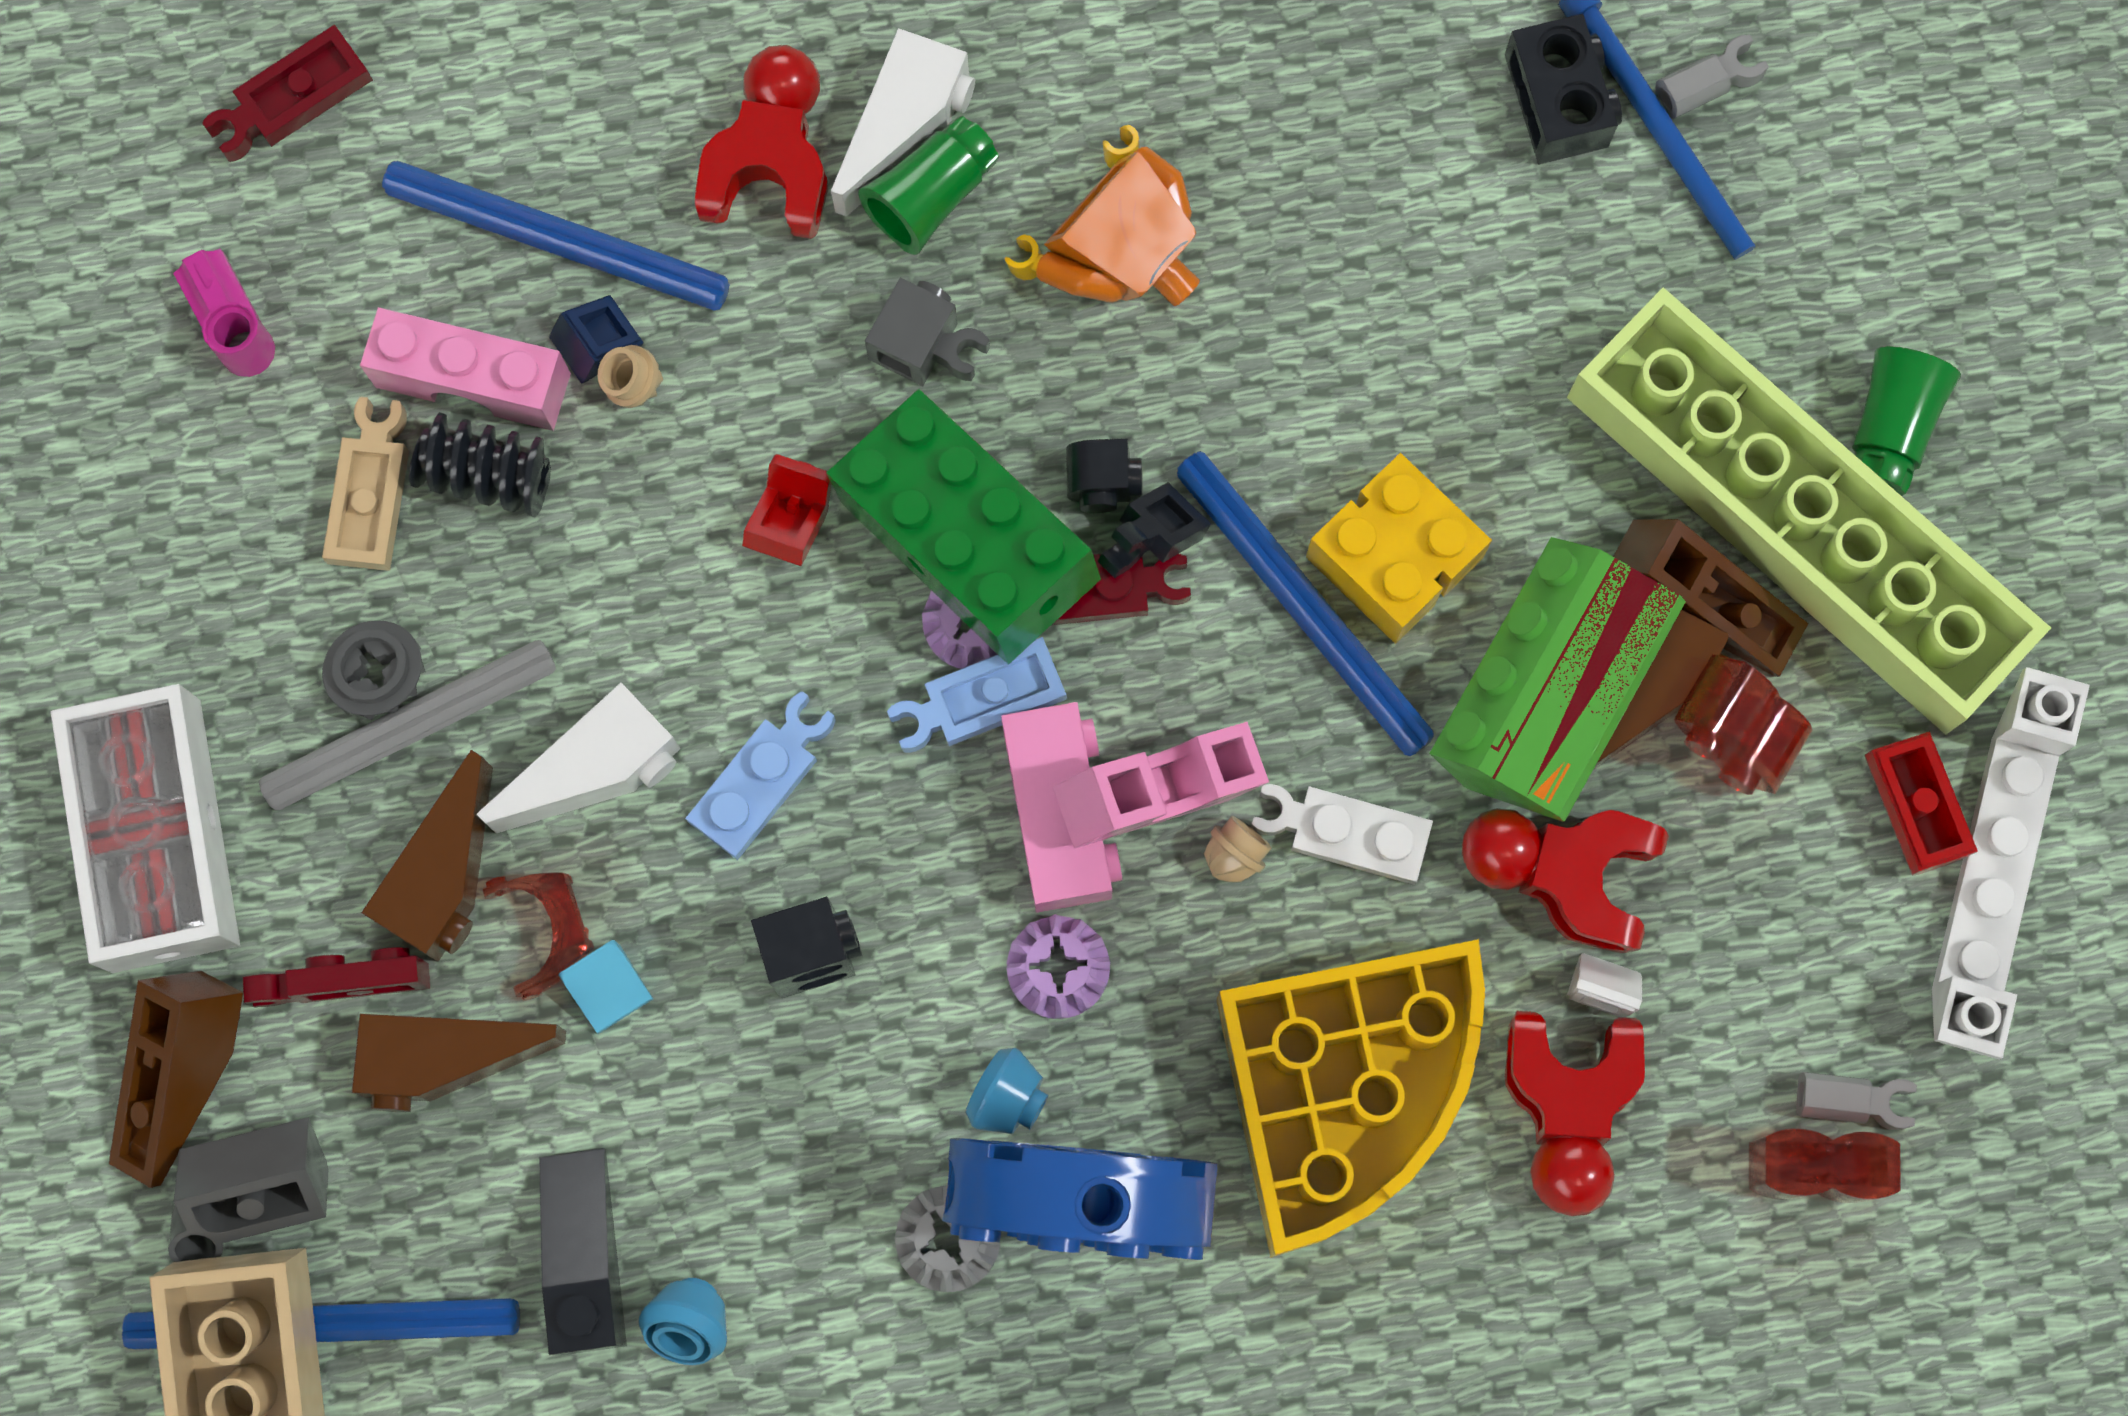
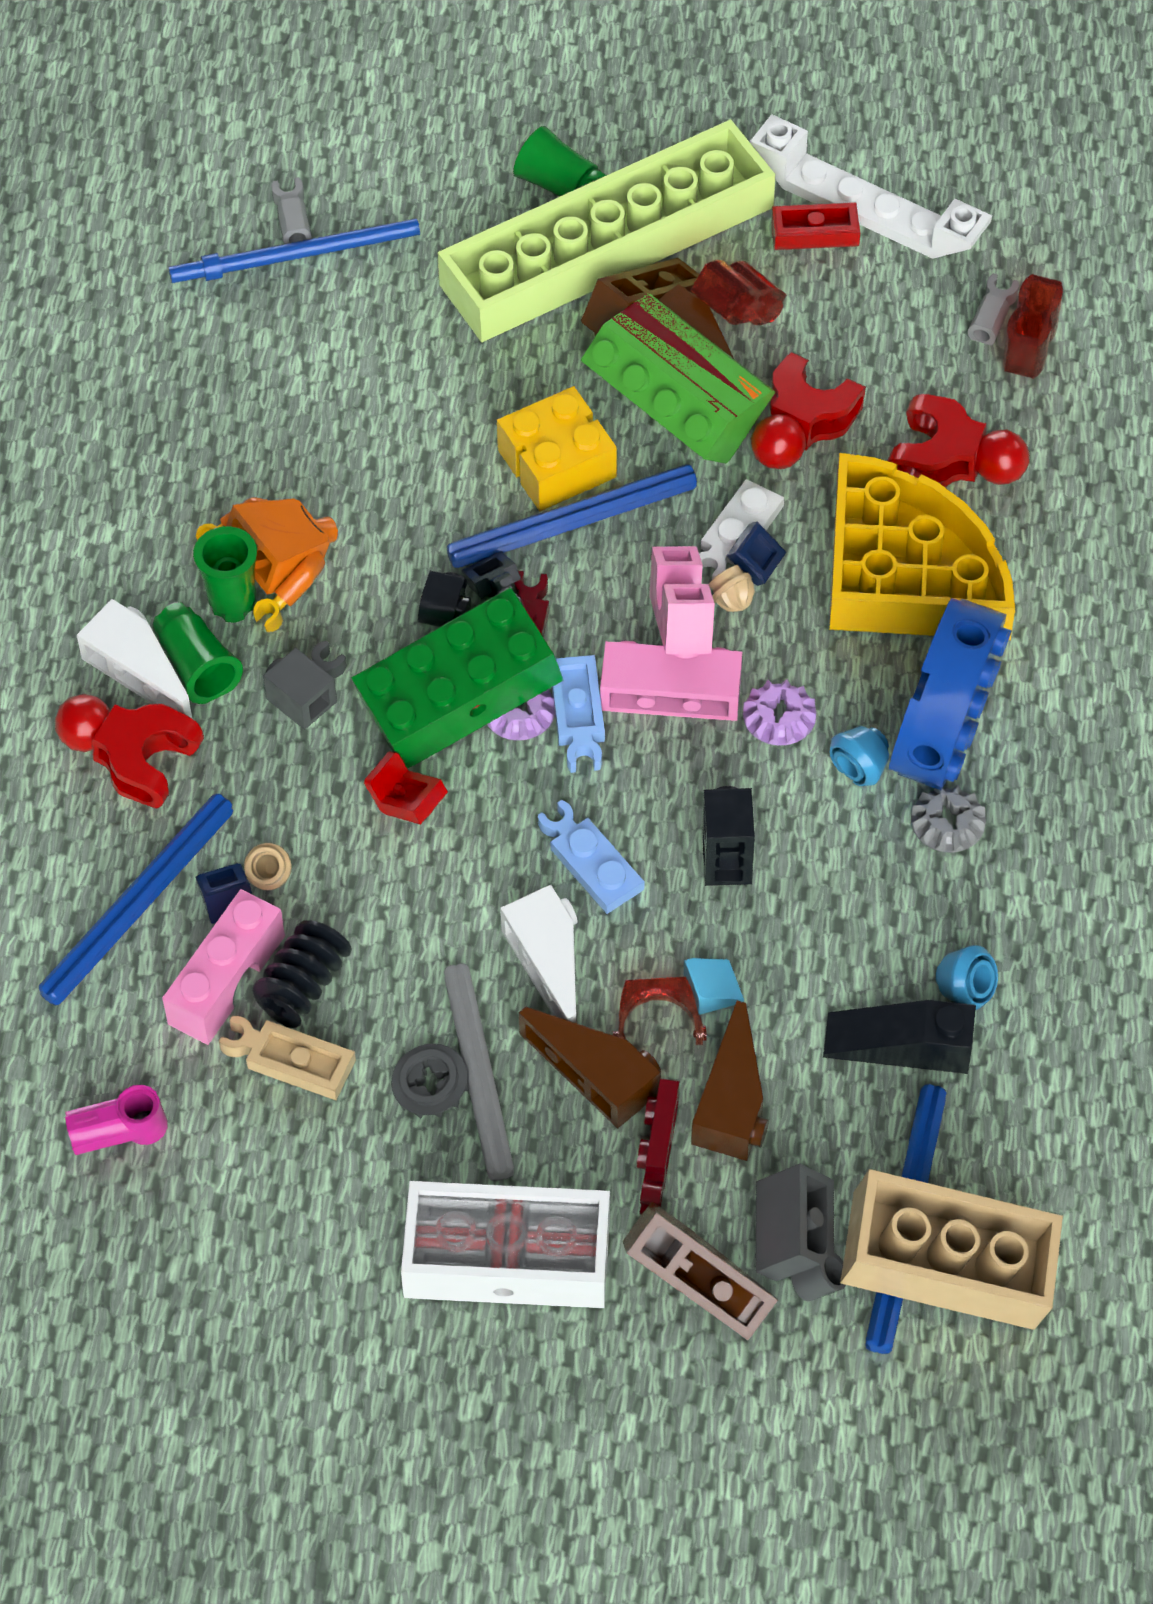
camera: 75 degrees left, 20 degrees down
(1037, 172) = (227, 568): none -> green plant
(1305, 868) = (756, 553): none -> dark blue tile
(1548, 90) = (270, 287): black brick -> none
(1606, 986) = (885, 416): white slope -> none

